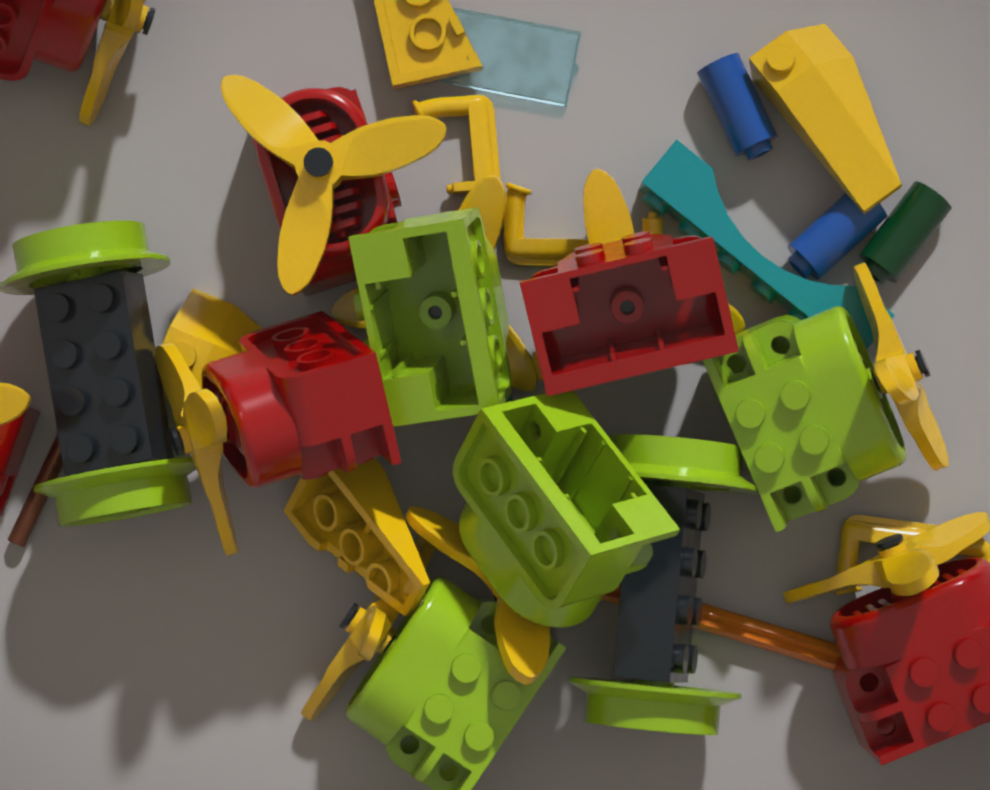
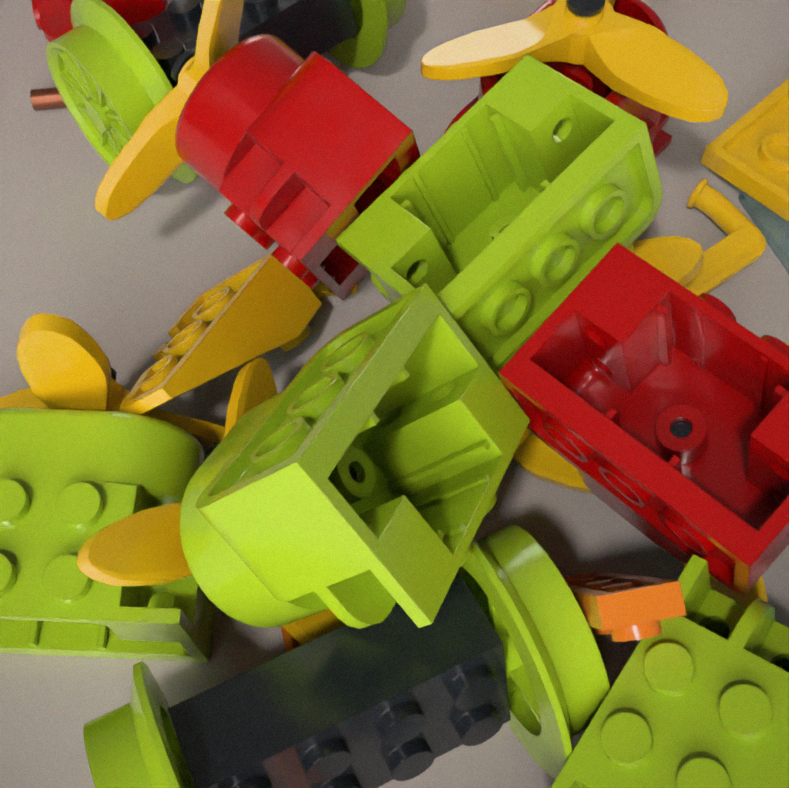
camera: 60 degrees right, 25 degrees down
(685, 409) = (626, 604): none -> orange plate

